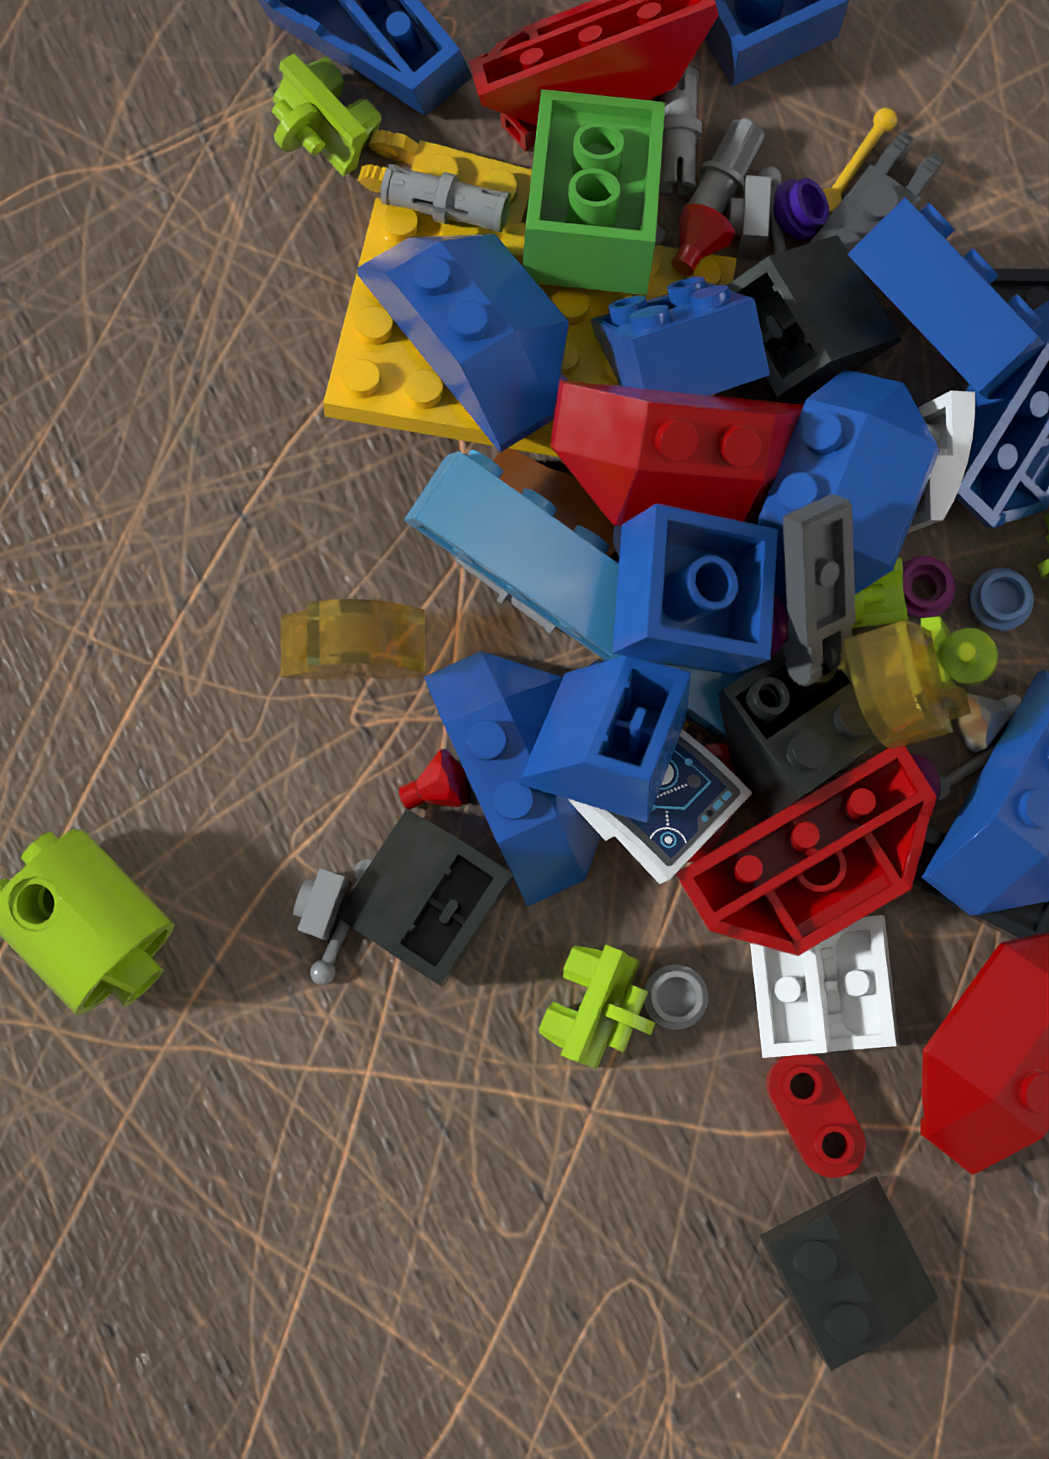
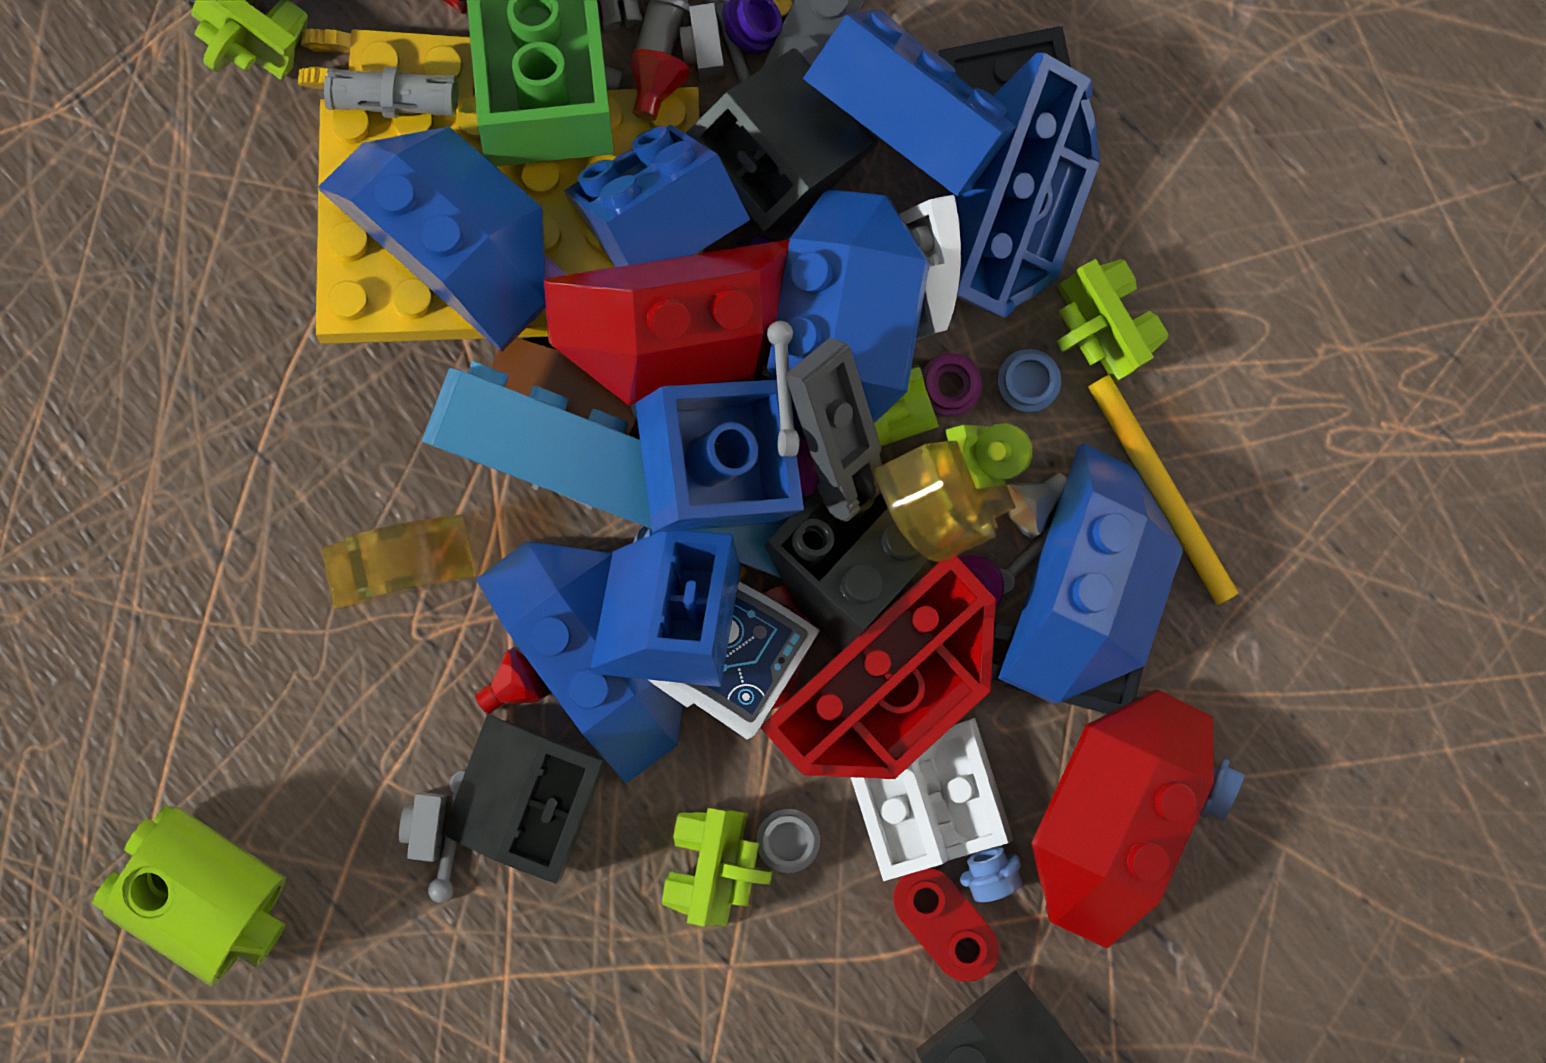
camera: 15 degrees left, 5 degrees up
(769, 587) = (780, 335): none -> light grey hinge
(873, 1074) = (992, 874): none -> medium blue plate

